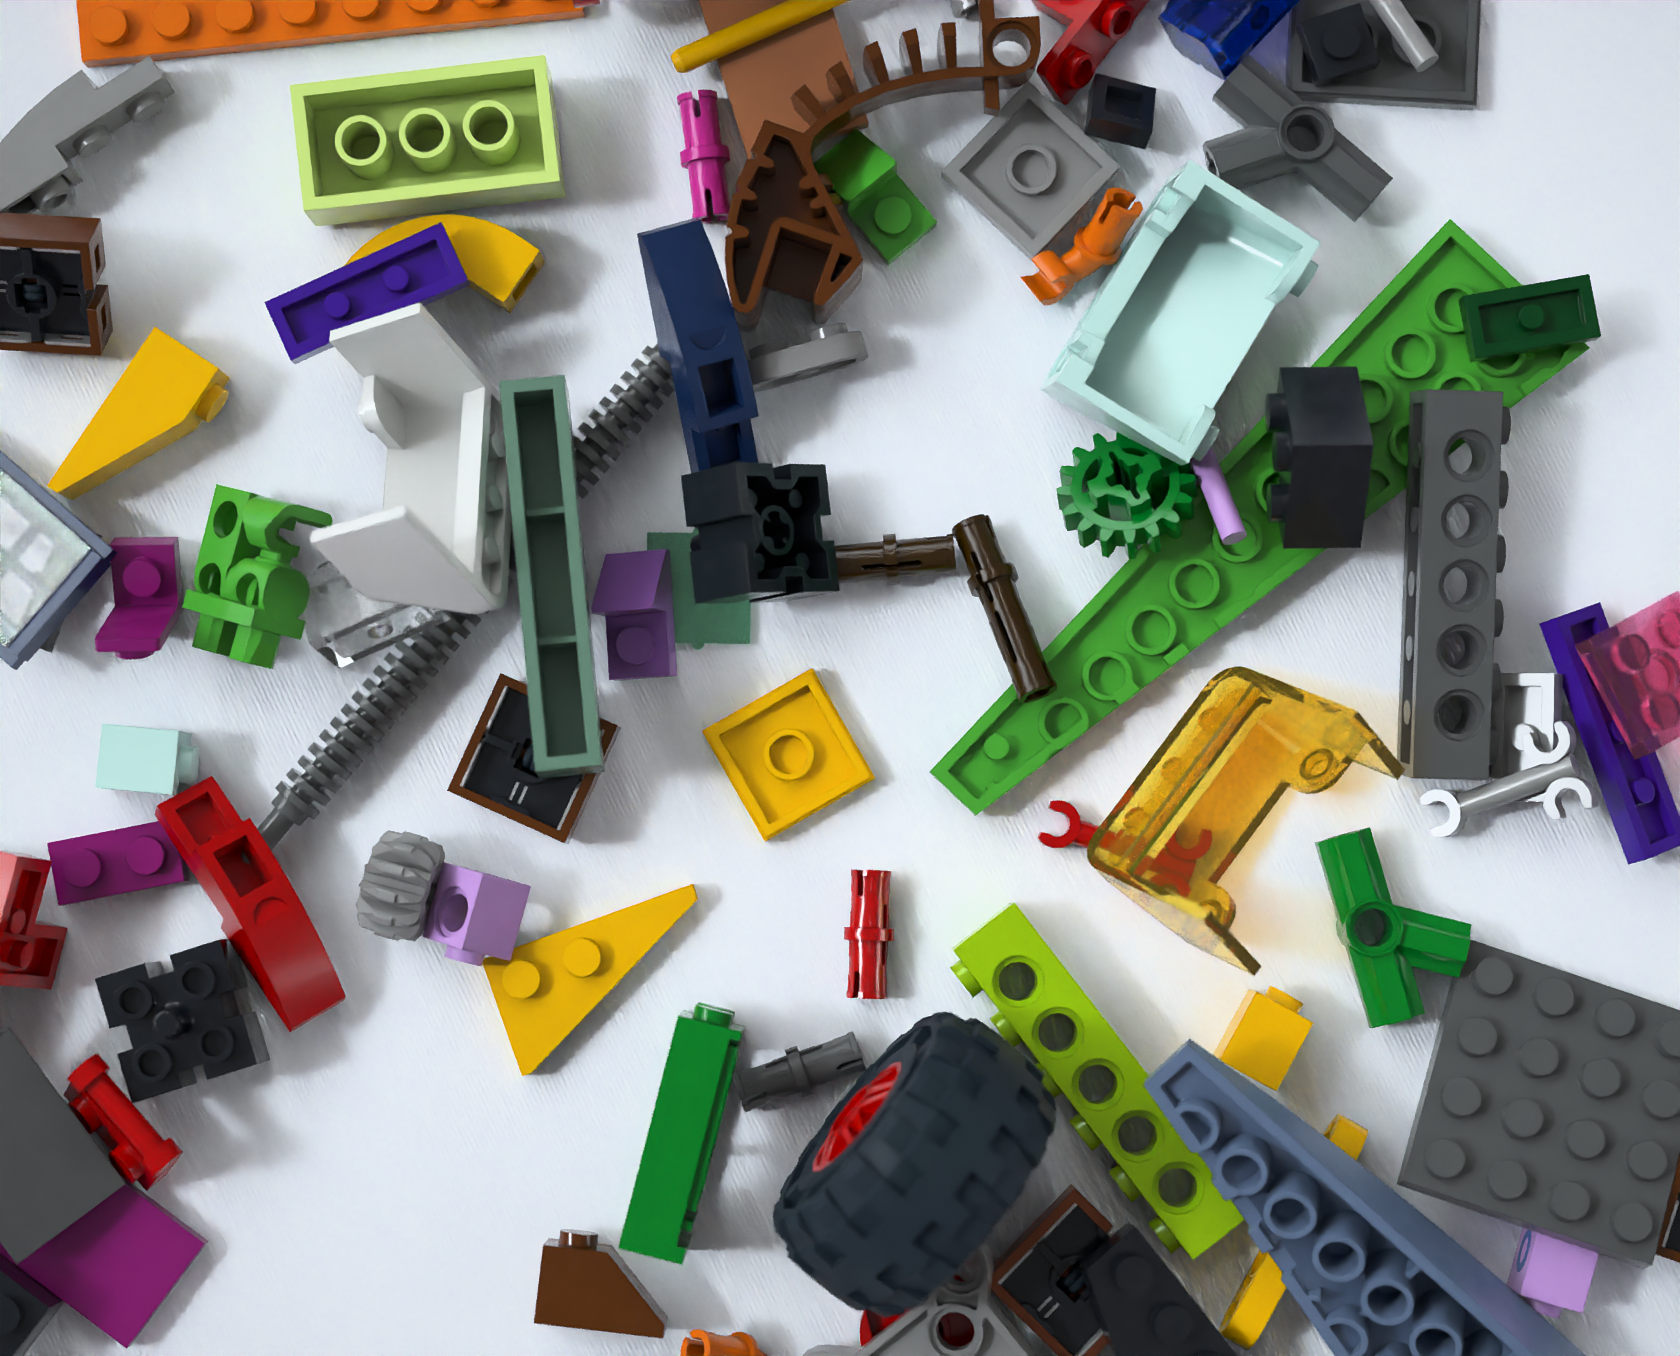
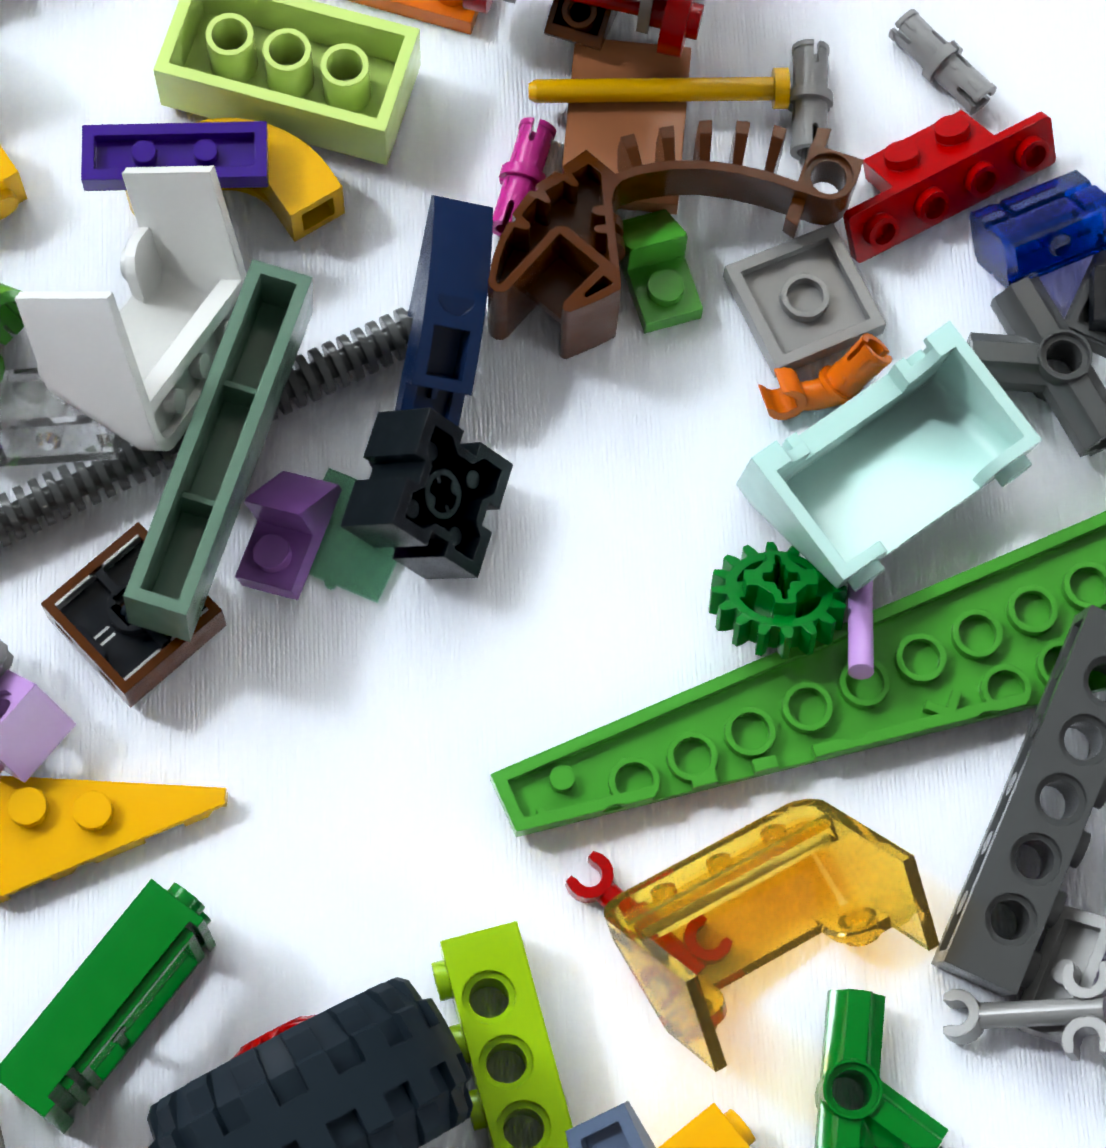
camera: 20 degrees right, 15 degrees down
(788, 754) = (367, 712): yellow tile -> none
(798, 1071) = (242, 1003): dark grey pin -> none
(828, 351) = (552, 377): light grey plate -> none
(868, 934) = (368, 903): red pin -> none
(895, 559) = (579, 587): dark brown pin -> none
(995, 585) = (622, 633): dark brown pin -> none
(1120, 111) = (904, 281): black plate -> none
(1322, 457) = (973, 618): black brick -> none

